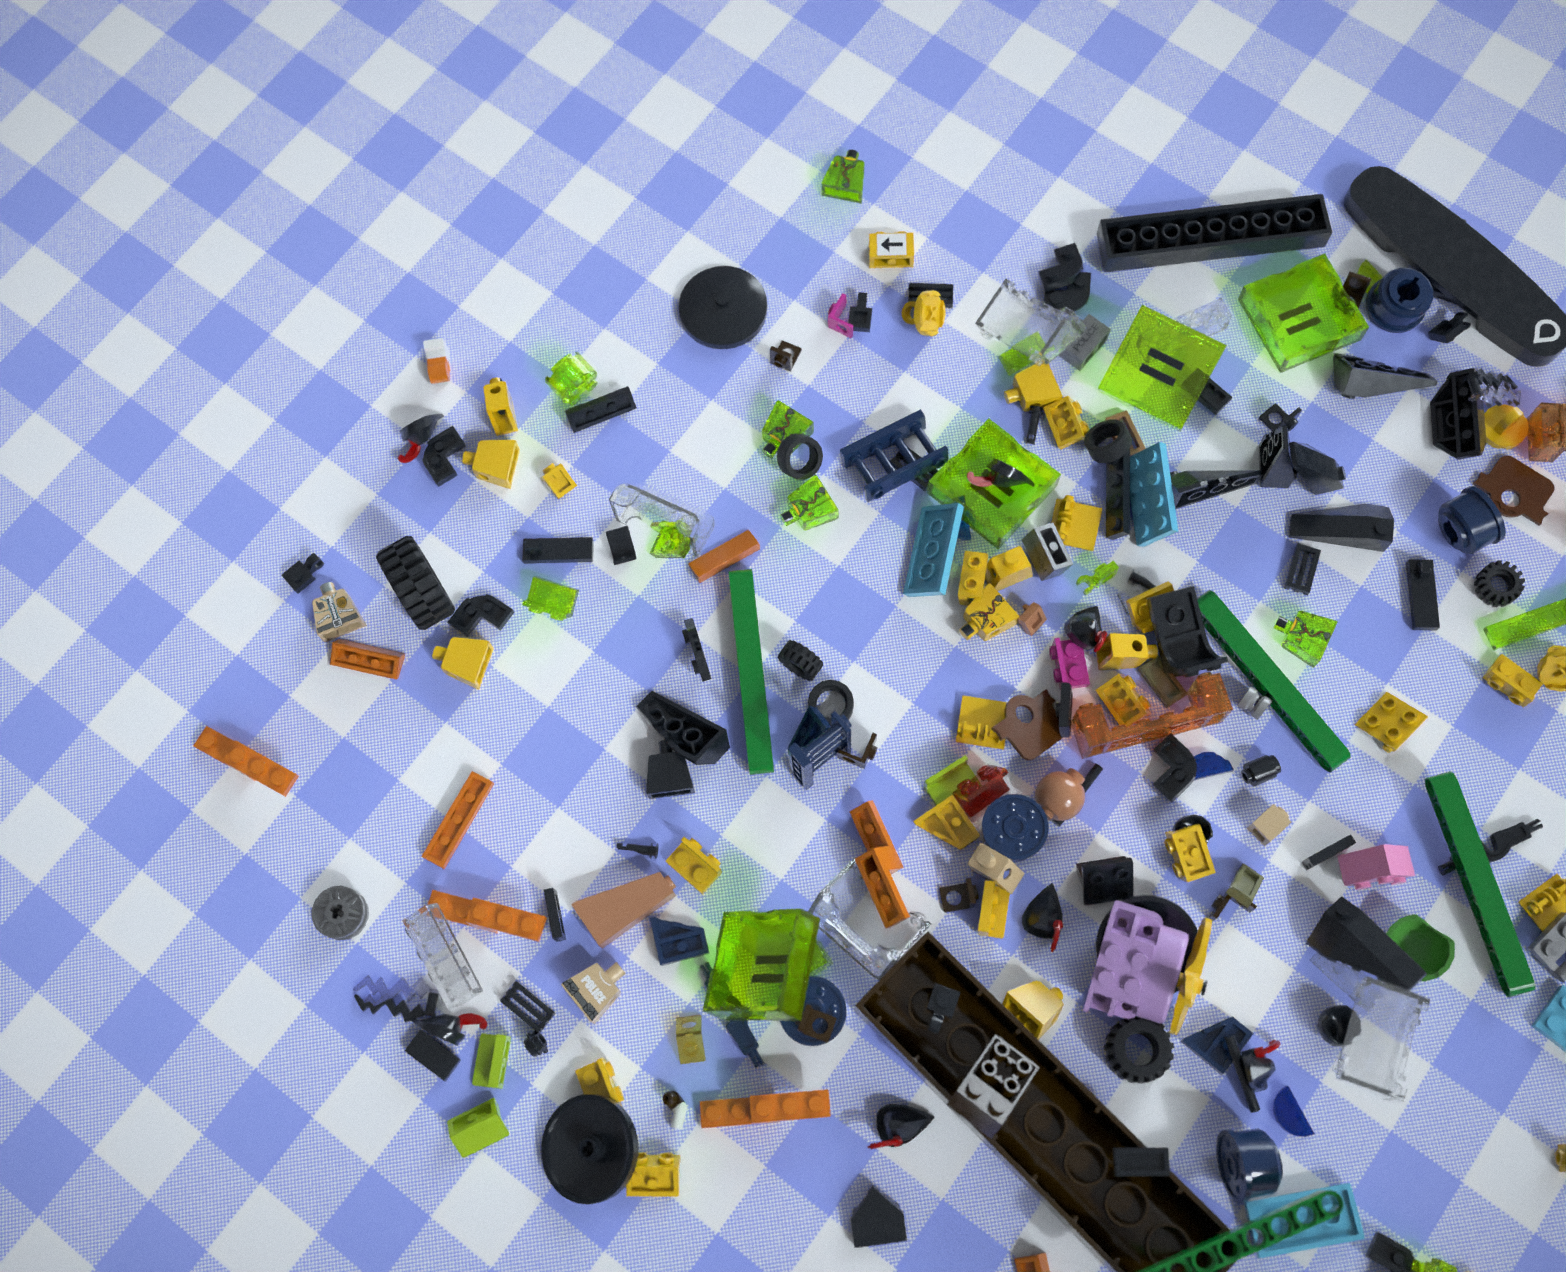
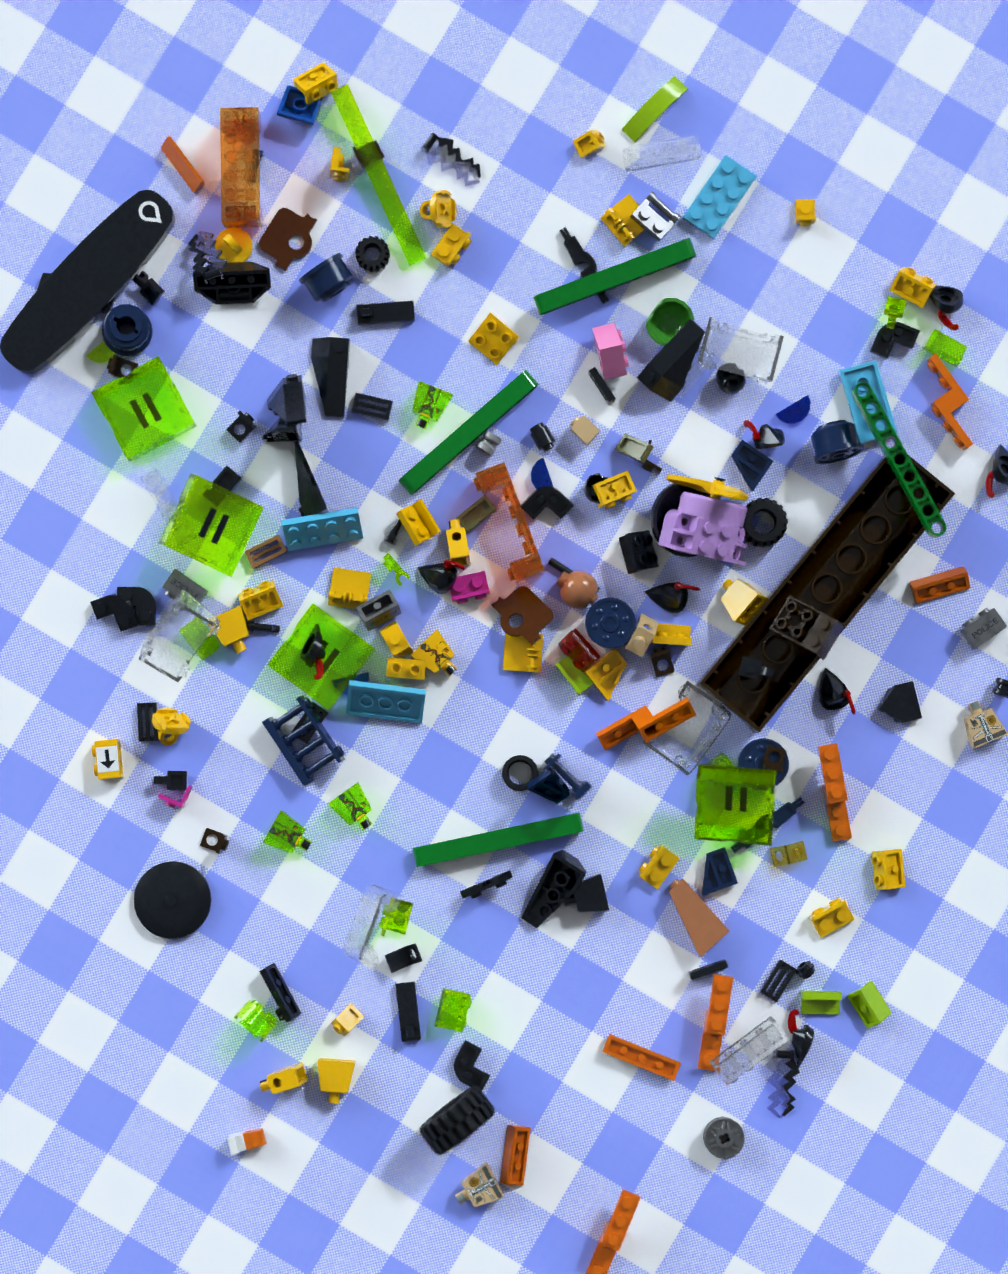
camera: 105 degrees left, 15 degrees up
(300, 574) = (449, 1224): black plate -> none
(417, 434) = (316, 1145): black piece -> none
(432, 1055) = (821, 1047): black tile -> none
(438, 451) = (330, 1127): black plate -> none
(465, 659) = (511, 1073): yellow torso -> none
(589, 1149) = (876, 918): black dish -> none
(594, 989) = (761, 930): tan torso -> none
(642, 849) = (649, 909): black piece -> none
(677, 1107) = (840, 856): arm -> none
(724, 556) = (401, 873): orange slope -> none
(800, 660) = (489, 800): black tyre -> none
(812, 465) = (305, 826): black tyre -> none
(845, 178) = (38, 805): clear neon green torso -> none
(869, 754) = (558, 738): dark brown bracket -> none
(1032, 618) = (435, 619): nougat tile -> none
(1064, 710) = (509, 590): black plate -> none
(1114, 449) = (286, 557): black tyre -> none
(1118, 497) = (320, 555): black plate -> none
(1124, 700) = (496, 543): yellow bracket -> none
(1141, 1161) = (847, 520): black tile -> none
(1181, 633) = (442, 500): black bracket -> none
(1213, 233) = (74, 485): black brick -> none
(1241, 1073) = (760, 452): black bar -> none
(1361, 379) = (200, 353): black wedge -> none

